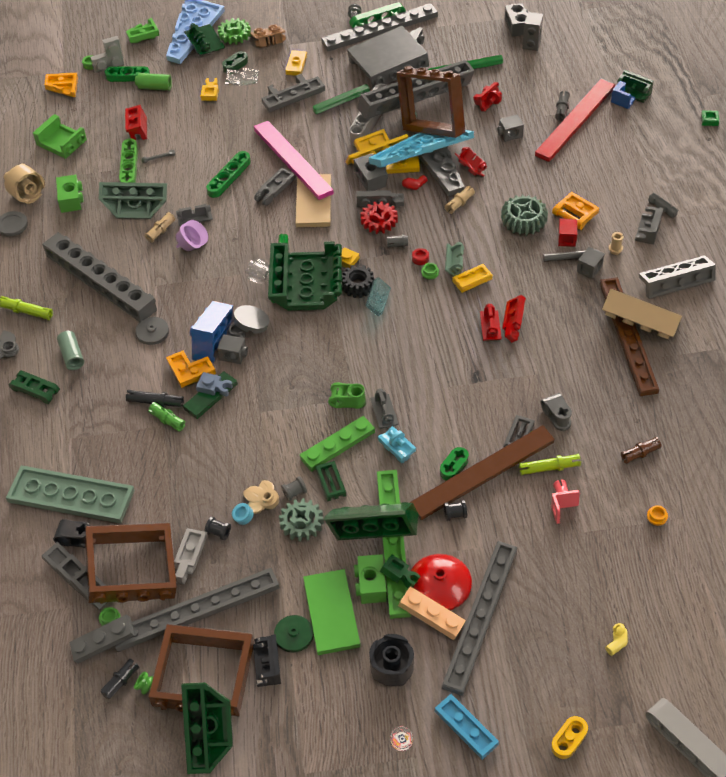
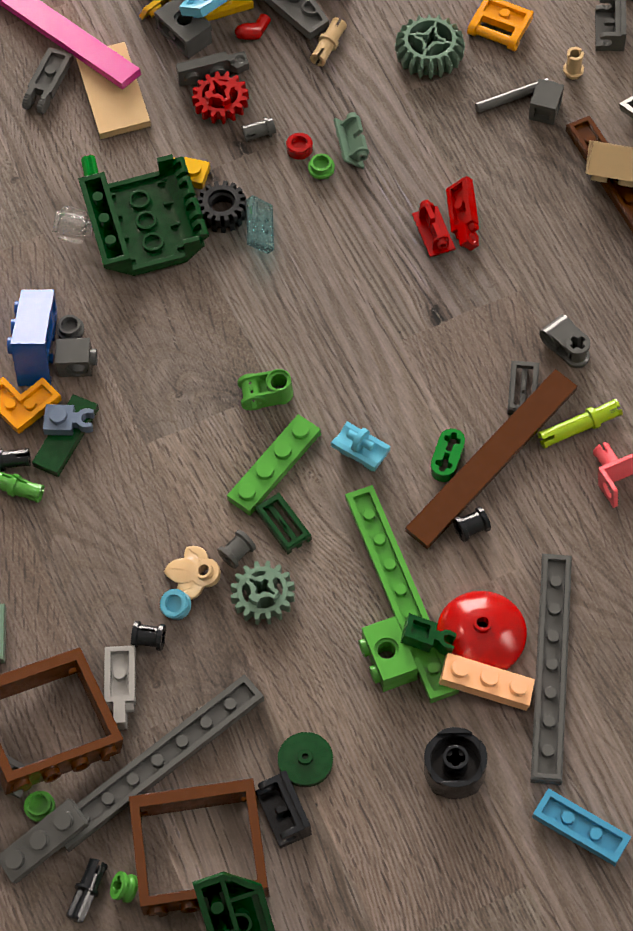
camera: 15 degrees left, 10 degrees up
(251, 319) = (86, 303): tile -> none
(331, 612) = (347, 714): bright green tile -> none
(373, 521) = (367, 571): dark green slope -> none
(383, 409) = (324, 398): dark grey hinge -> none
(401, 738) = (499, 866): clear tile -> none
(472, 278) = (385, 163): yellow plate -> none
(567, 232) = (499, 61): red panel -> none

